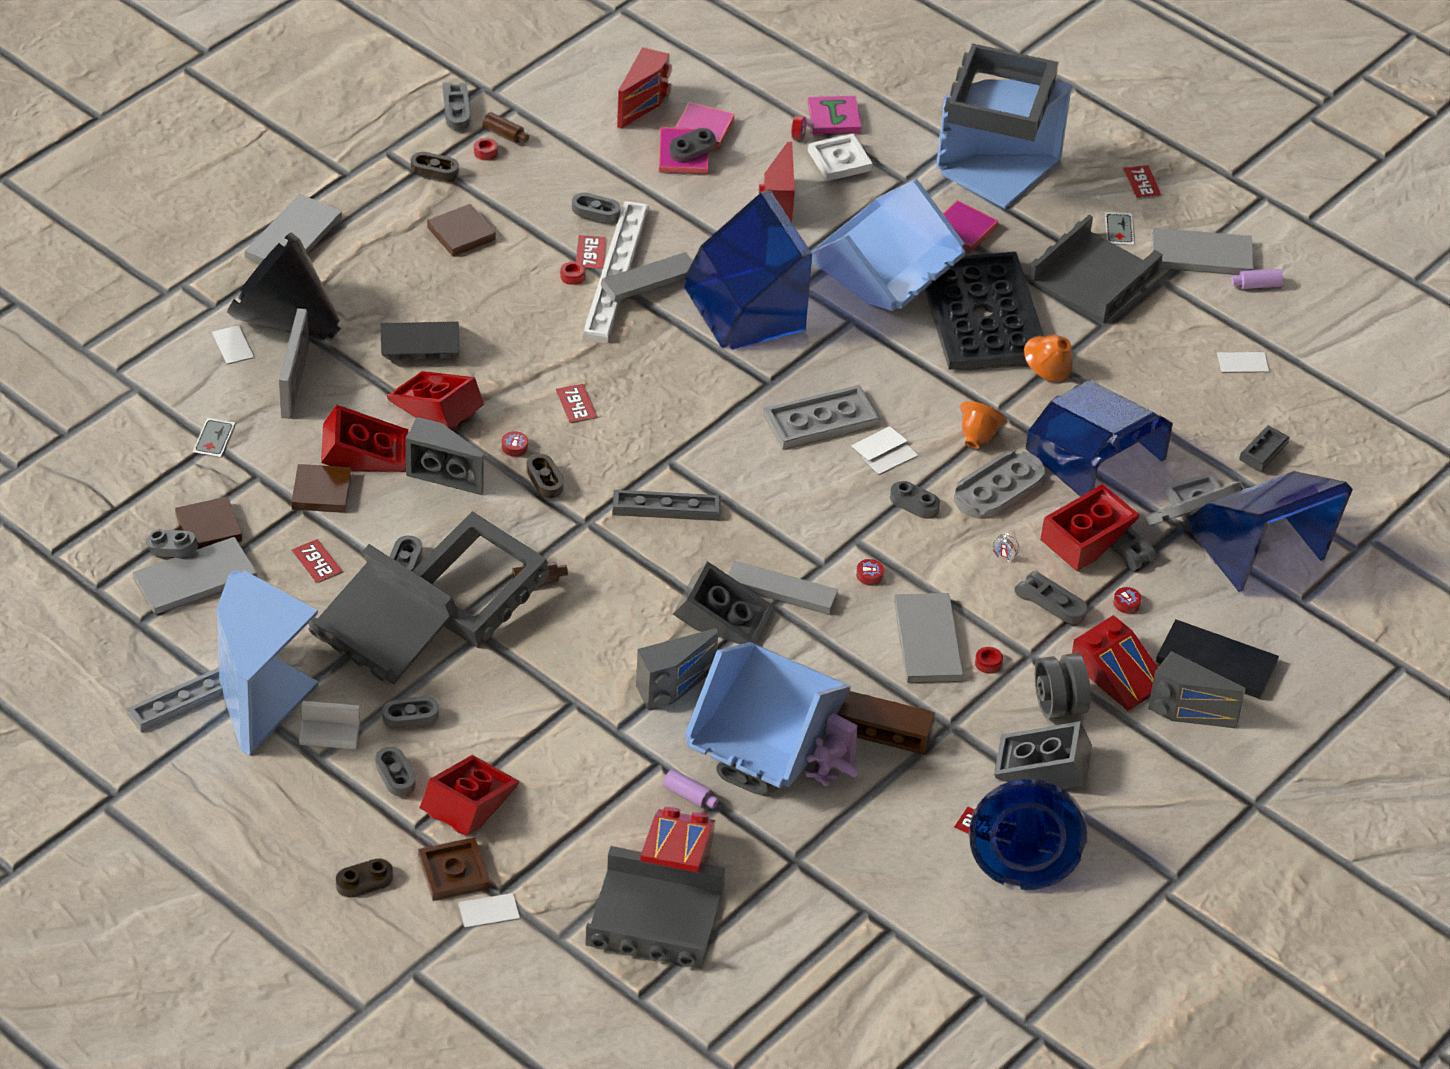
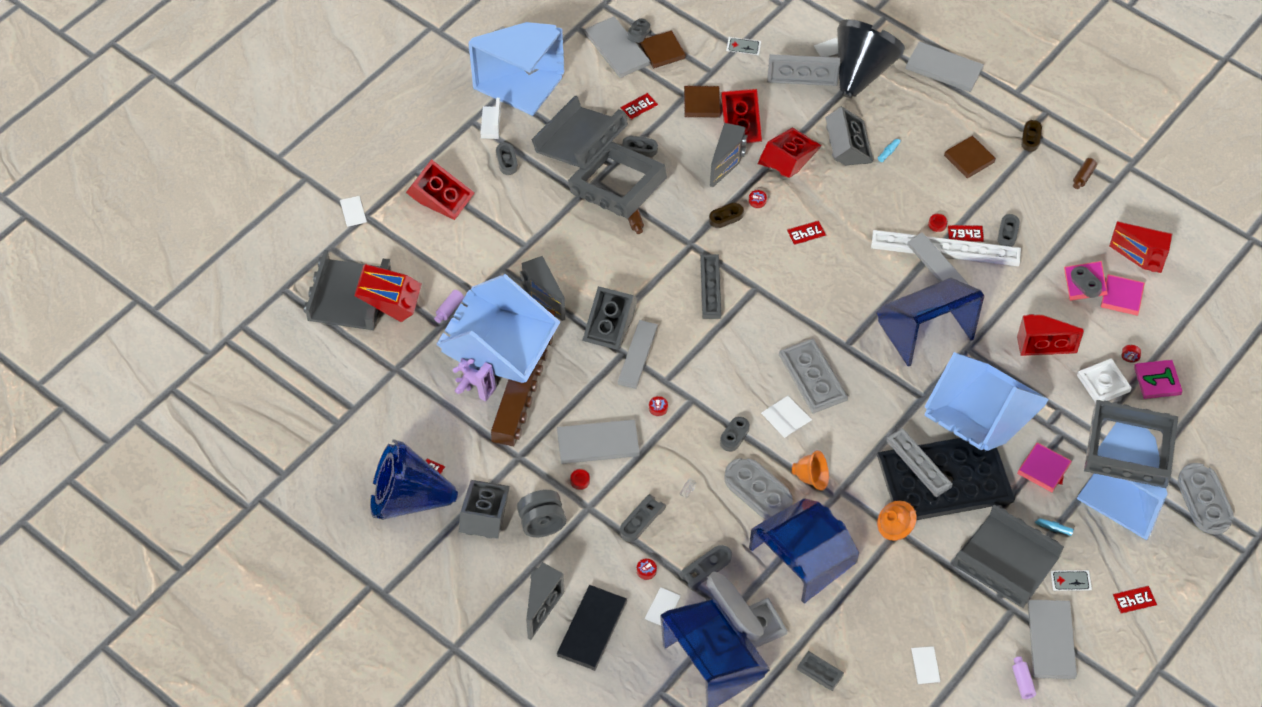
camera: 90 degrees right, 10 degrees up
(365, 877) = (373, 144): dark brown plate -> none
(399, 775) = (456, 154): dark grey plate -> none
(440, 305) = (889, 150): none -> medium azure piece
(454, 868) = (383, 190): reddish brown tile -> none
(456, 105) = (1103, 143): dark grey plate -> none
(485, 149) = (1061, 165): red tile -> none
(967, 324) = (919, 462): none -> light grey tile
(1048, 229) = (1054, 526): none -> medium azure piece
(1087, 526) = (707, 535): red slope -> none
(1117, 662) = (580, 556): red slope -> none
(1179, 591) = (663, 601): none -> white sticker

